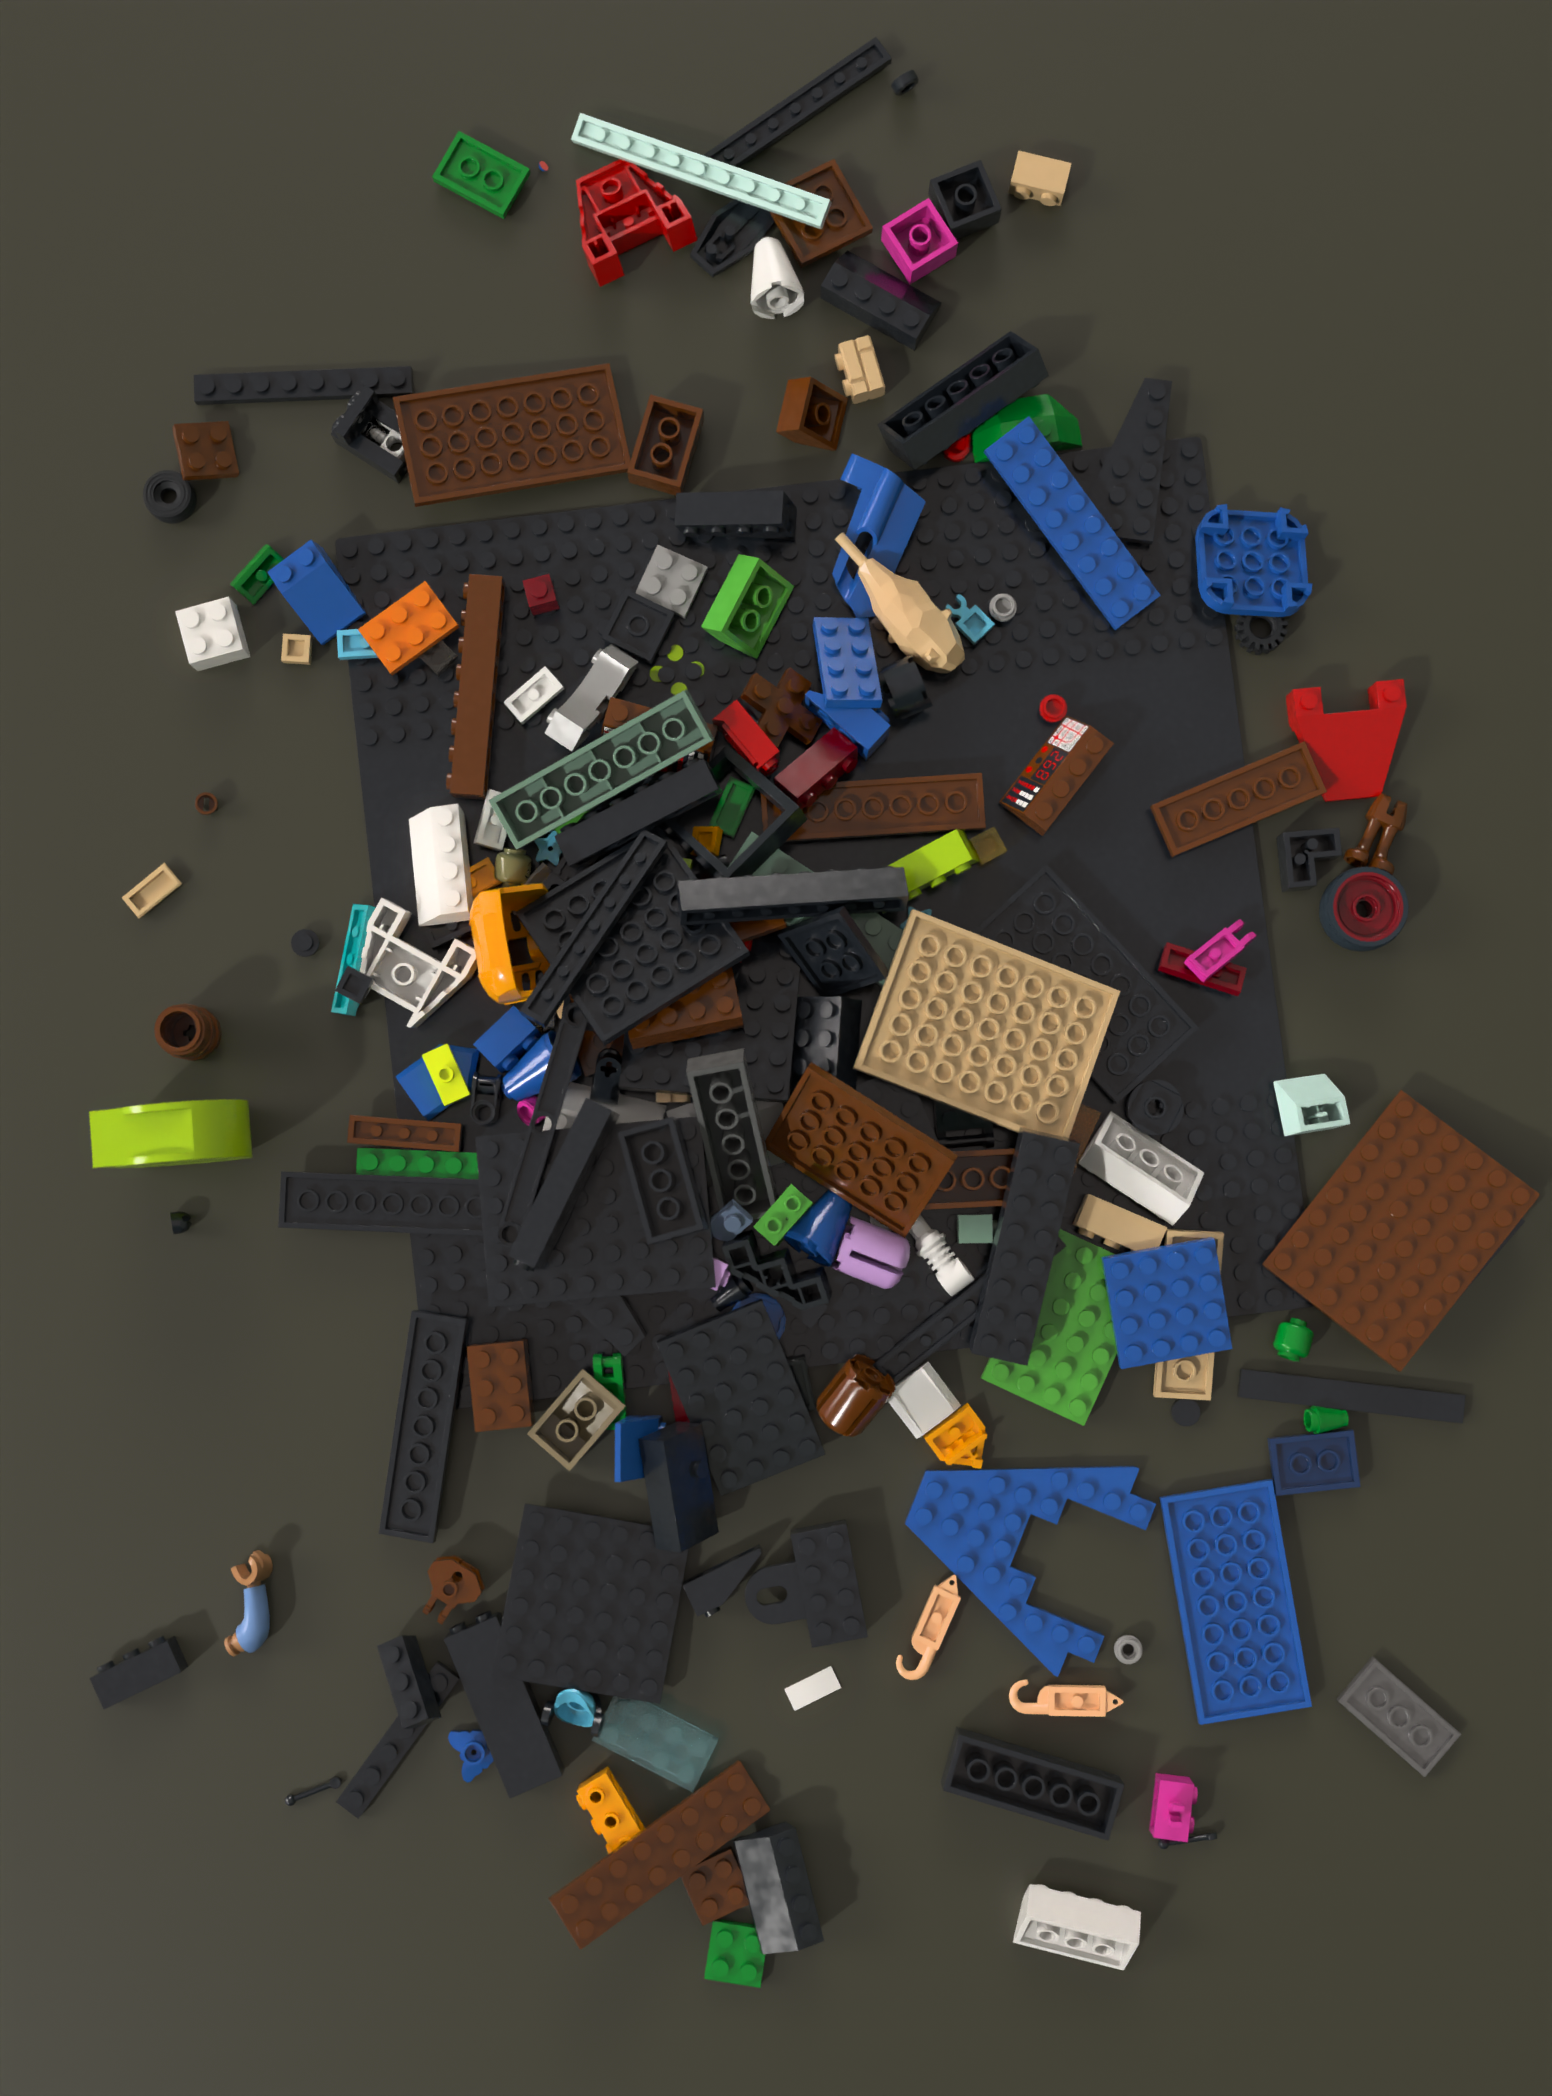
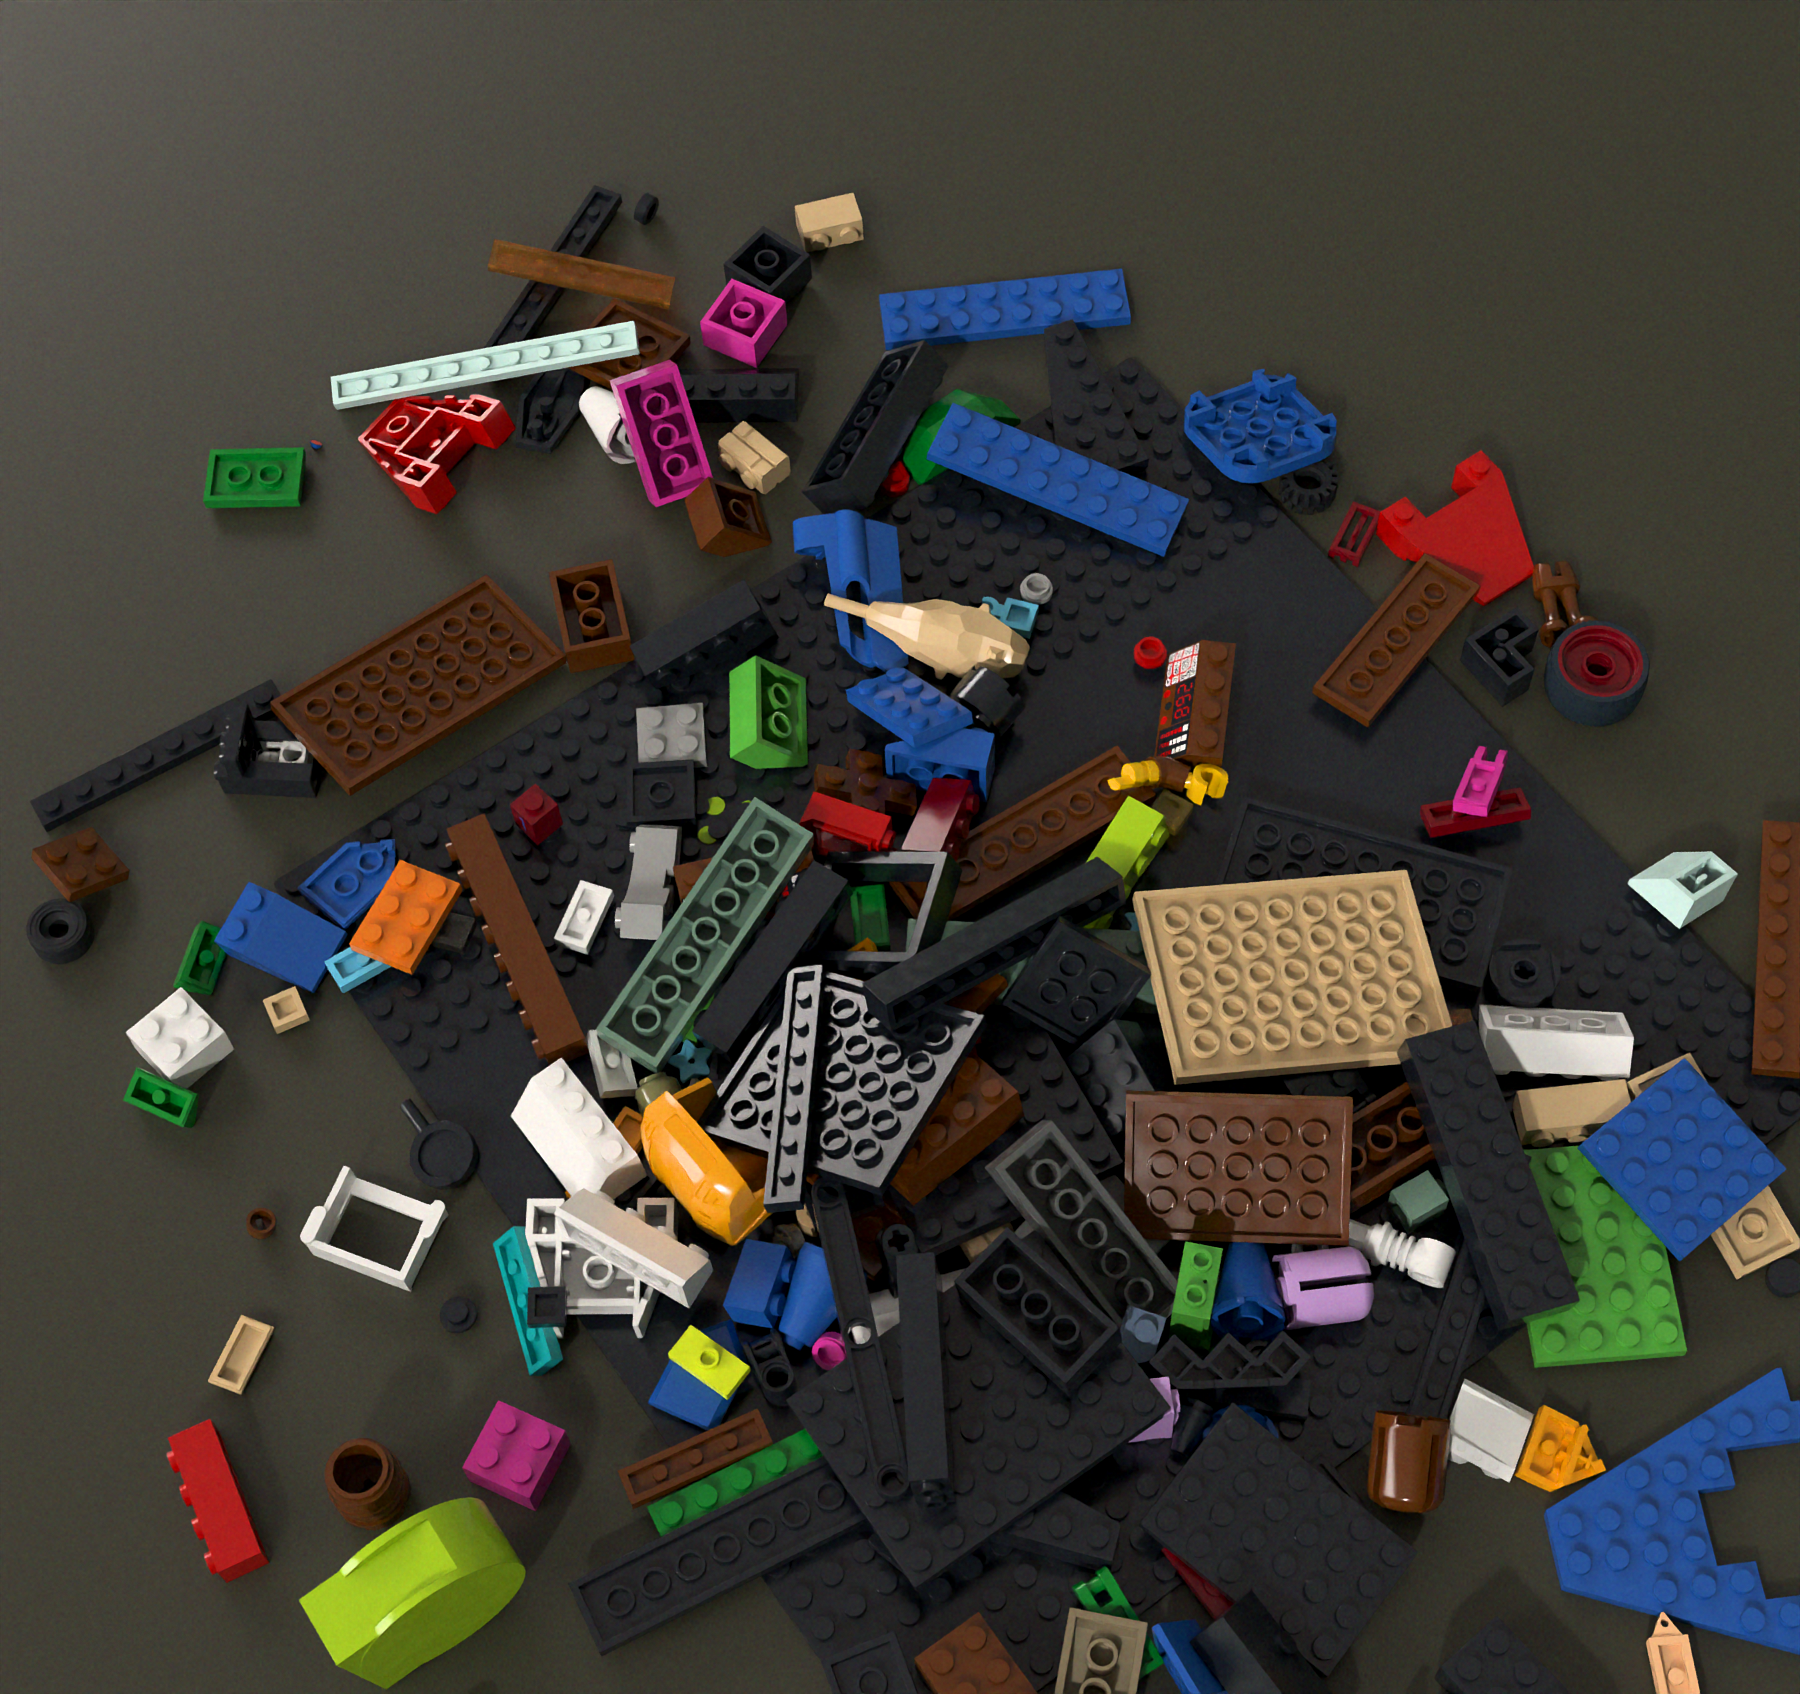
camera: 30 degrees left, 25 degrees down
(90, 985) = (217, 1501): none -> red brick
(180, 673) = (162, 1098): none -> green slope
(245, 829) = (325, 1220): none -> white piece
(293, 1064) = (516, 1455): none -> dark pink brick
(350, 818) = (441, 1152): none -> black piece
(388, 572) = (350, 880): none -> blue tile
(430, 976) = (635, 1246): none -> white slope
(795, 318) = (661, 432): none -> dark pink brick
(818, 122) = (581, 274): none -> clear orange plate
(1005, 820) = (1173, 775): none -> yellow piece
(1129, 336) = (1004, 308): none -> blue plate
(1250, 702) = (1347, 554): none -> dark red tile

